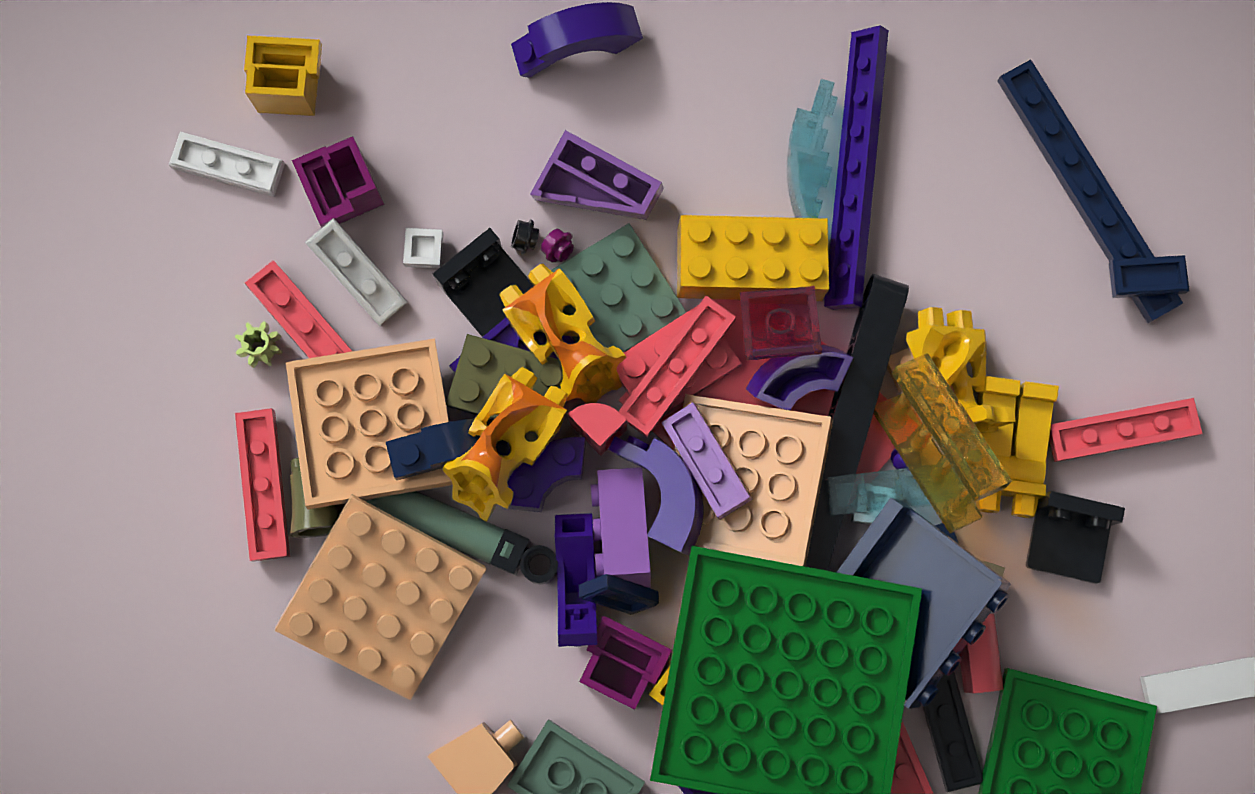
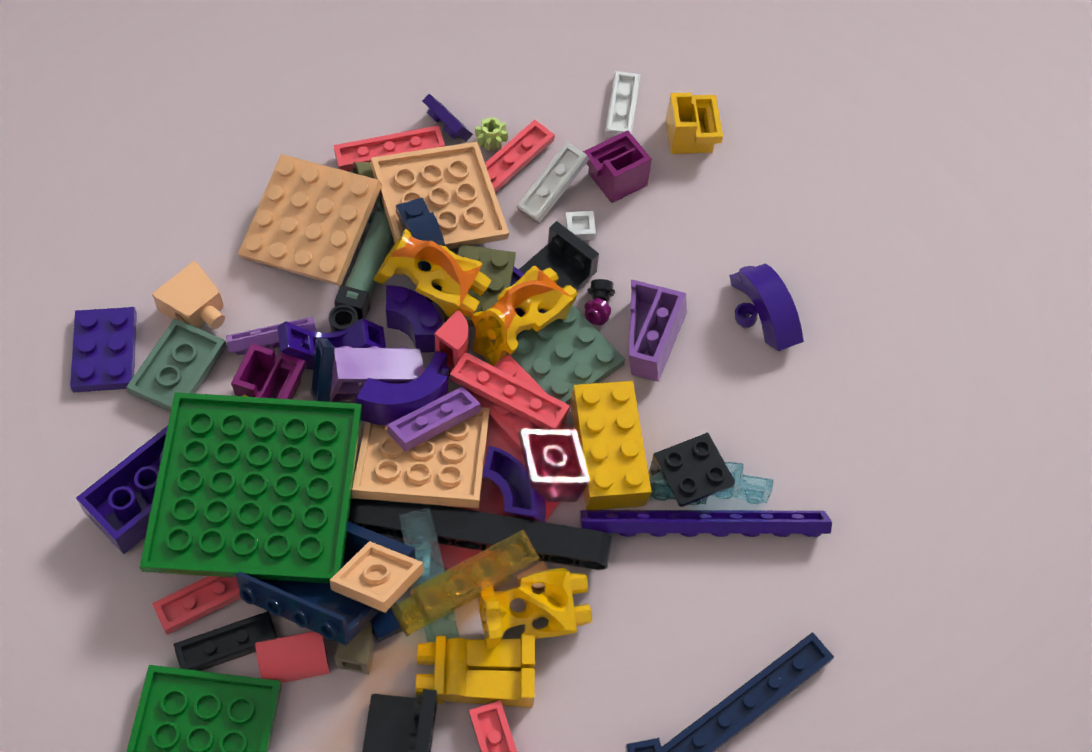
camera: 80 degrees right, 20 degrees down
(210, 409) = (440, 112): none -> dark purple plate
(544, 660) = (263, 336): none -> medium lavender plate
(577, 72) = (742, 315): none -> dark purple hinge
(798, 167) = (693, 469): none -> black bracket
(926, 543) = (377, 576): none -> light nougat plate

